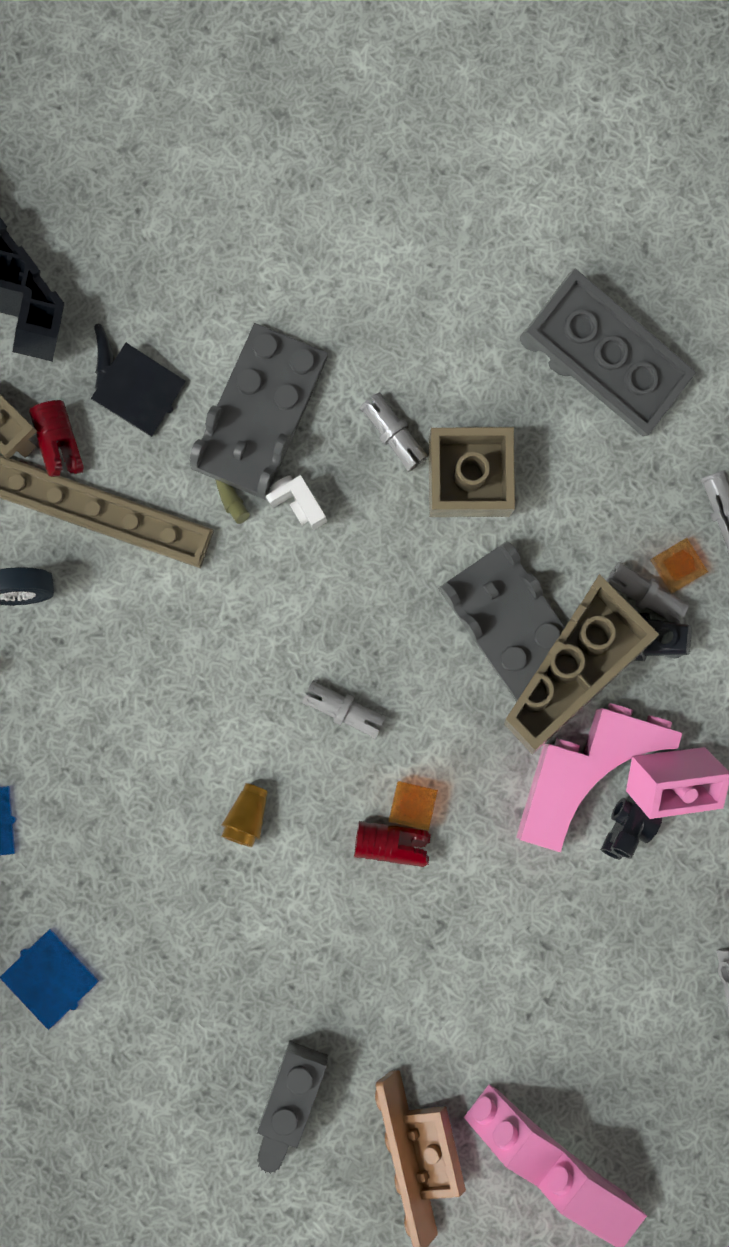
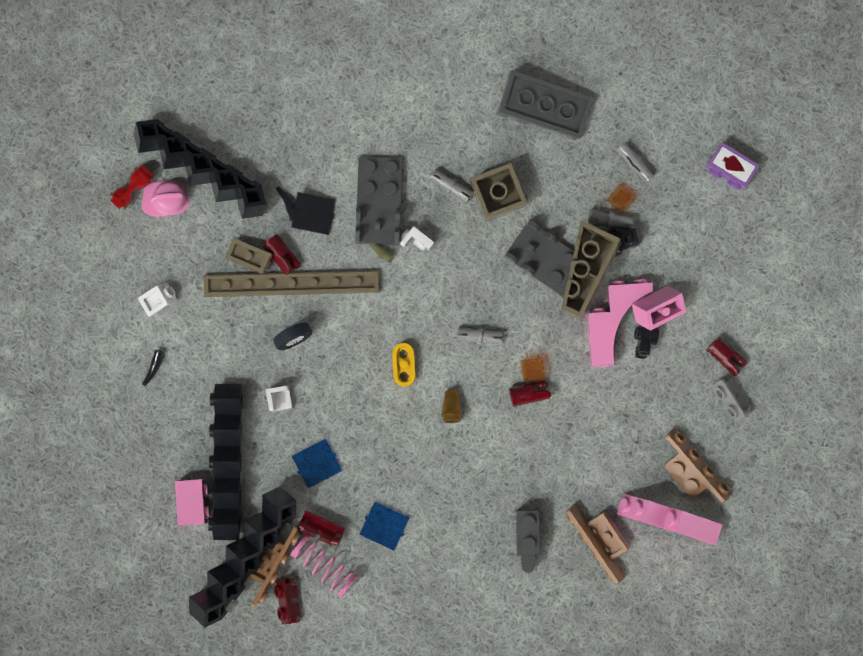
camera: 15 degrees left, 0 degrees up
(190, 709) = (403, 364): none -> yellow plate
(625, 1092) = (691, 470): none -> medium nougat bracket

